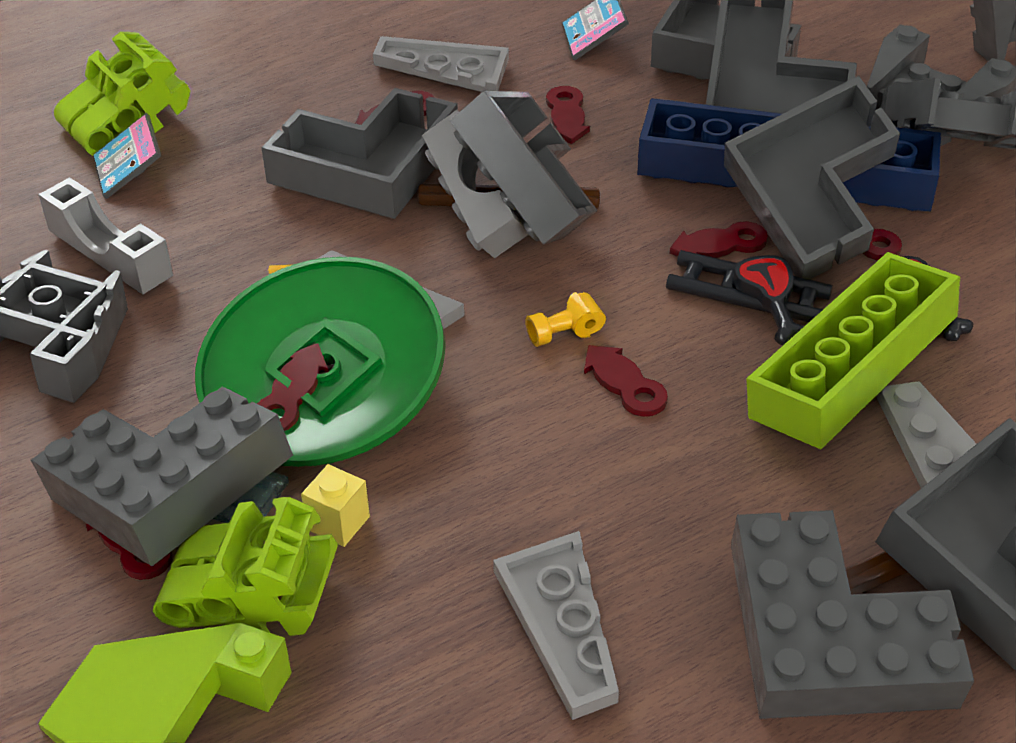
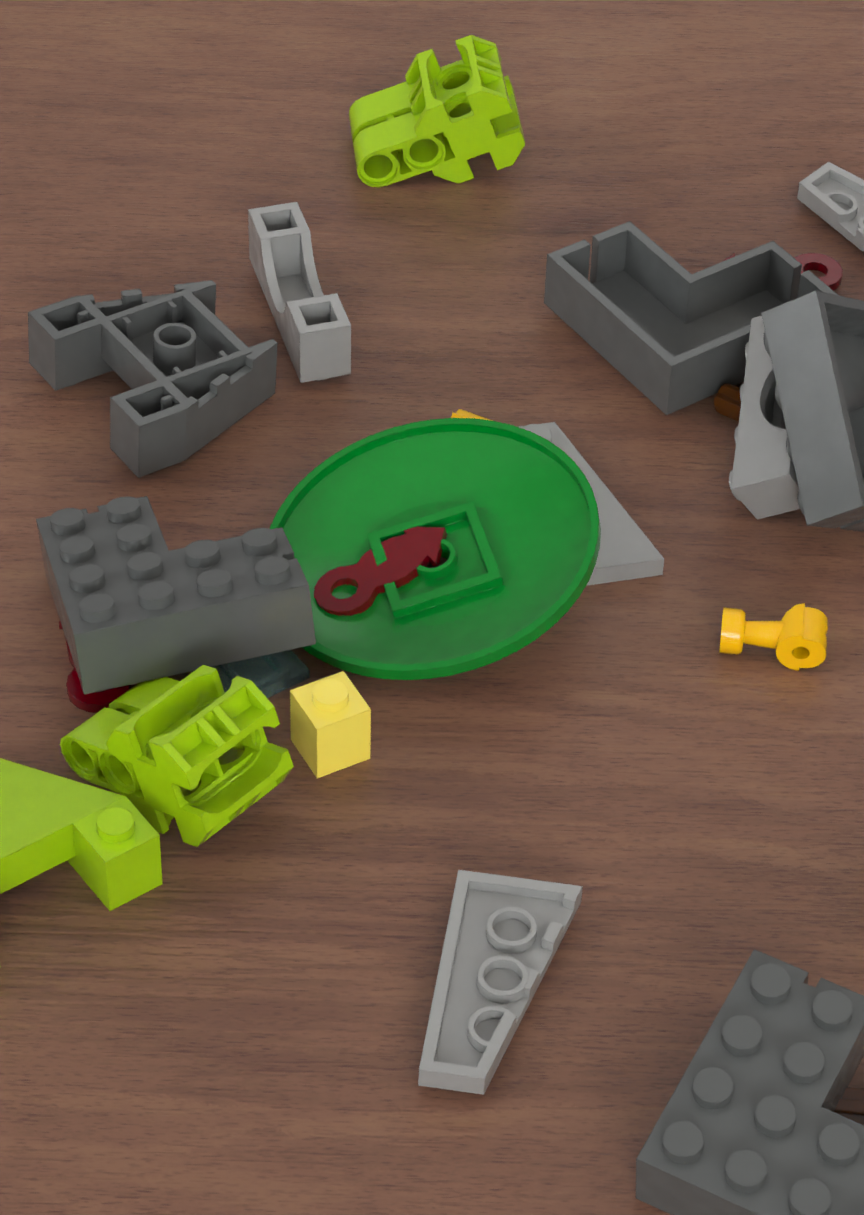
camera: 30 degrees right, 0 degrees up
(126, 156) = (395, 200): piece -> none
(625, 379) = (796, 741): dark red brick -> none

